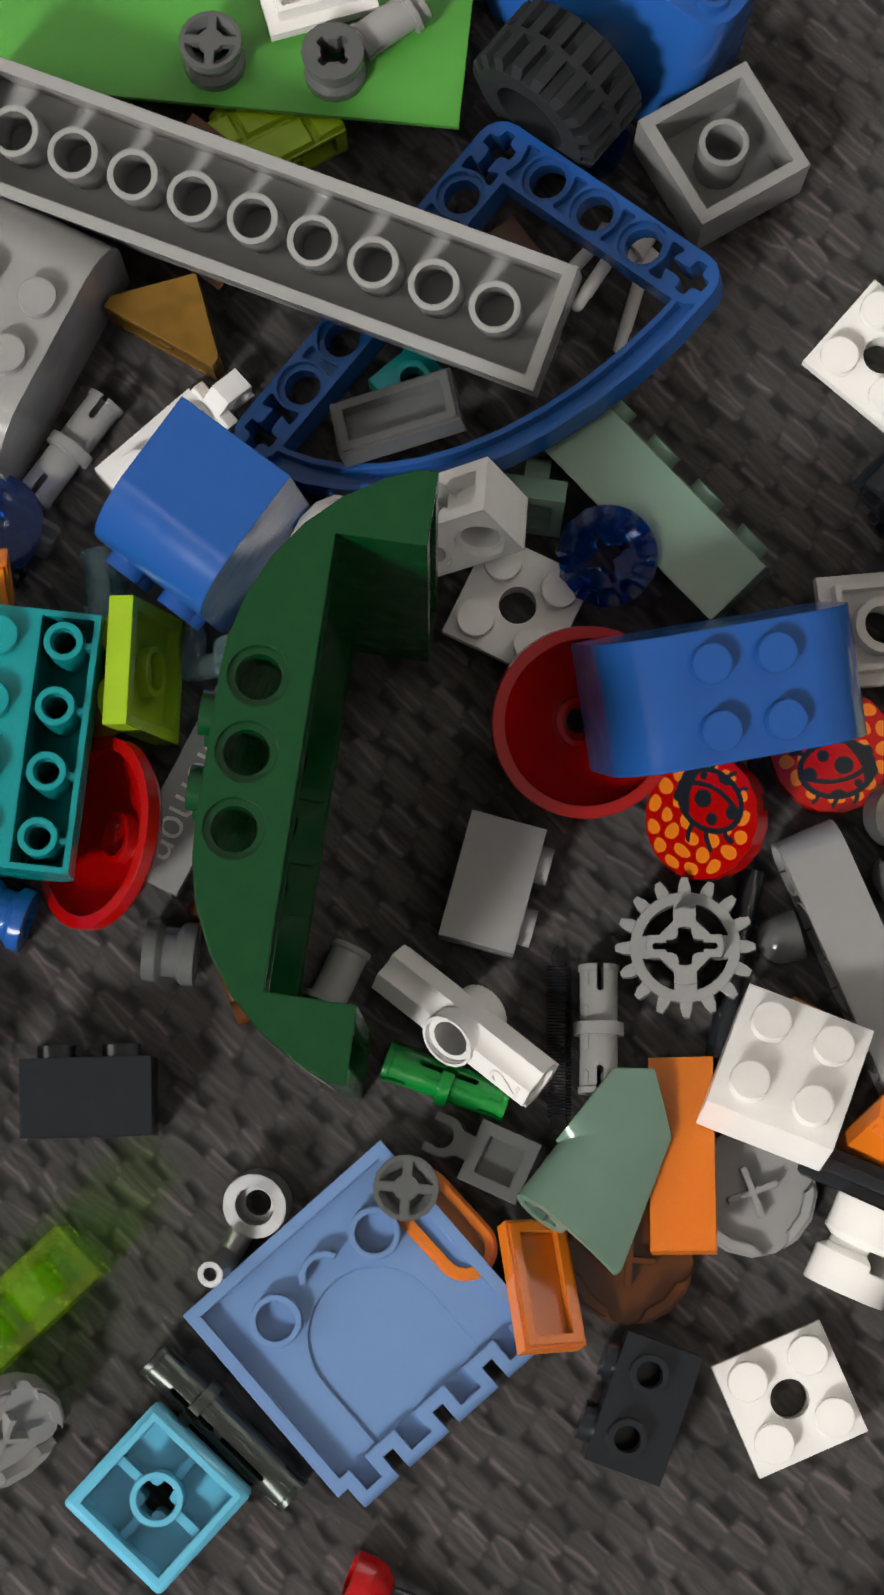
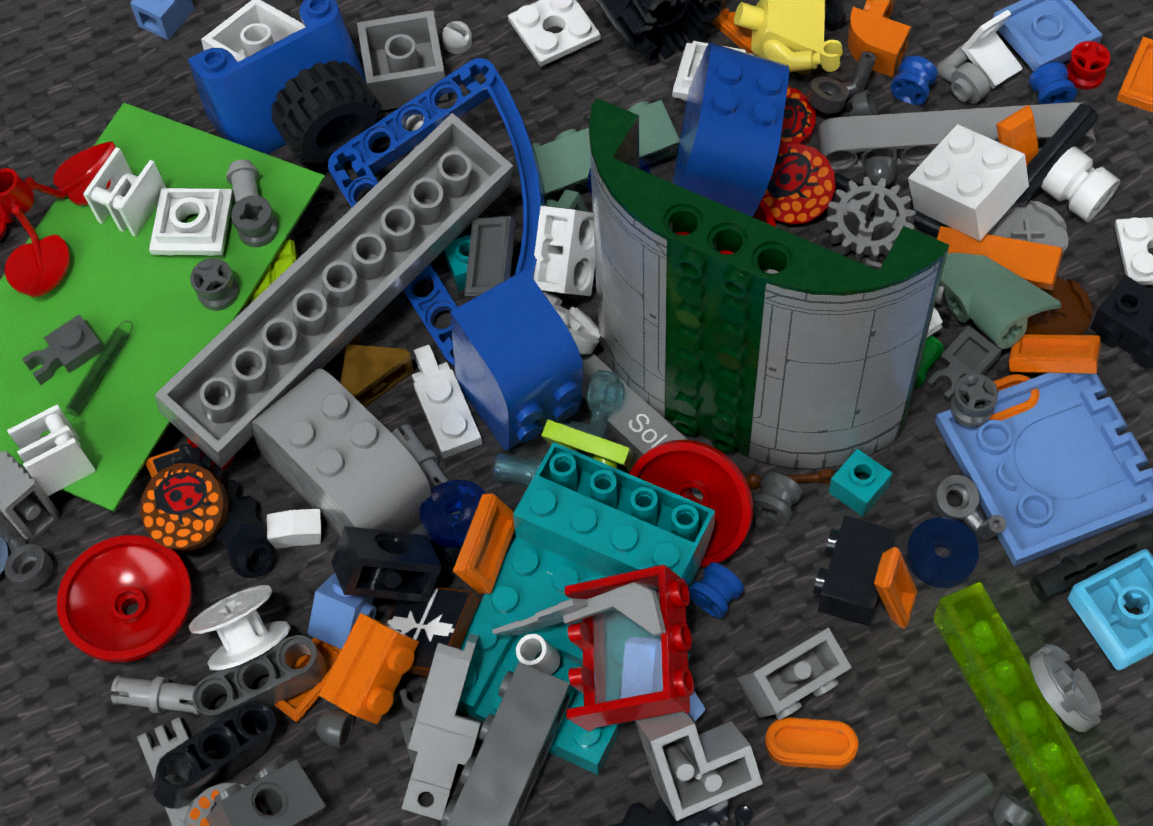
camera: 65 degrees left, 20 degrees down
(69, 1158) = (896, 587): none -> orange tile
(144, 1214) = (937, 570): none -> clear blue piece
(252, 1081) = (858, 493): none -> teal plate
(800, 219) = (453, 37): none -> white hinge

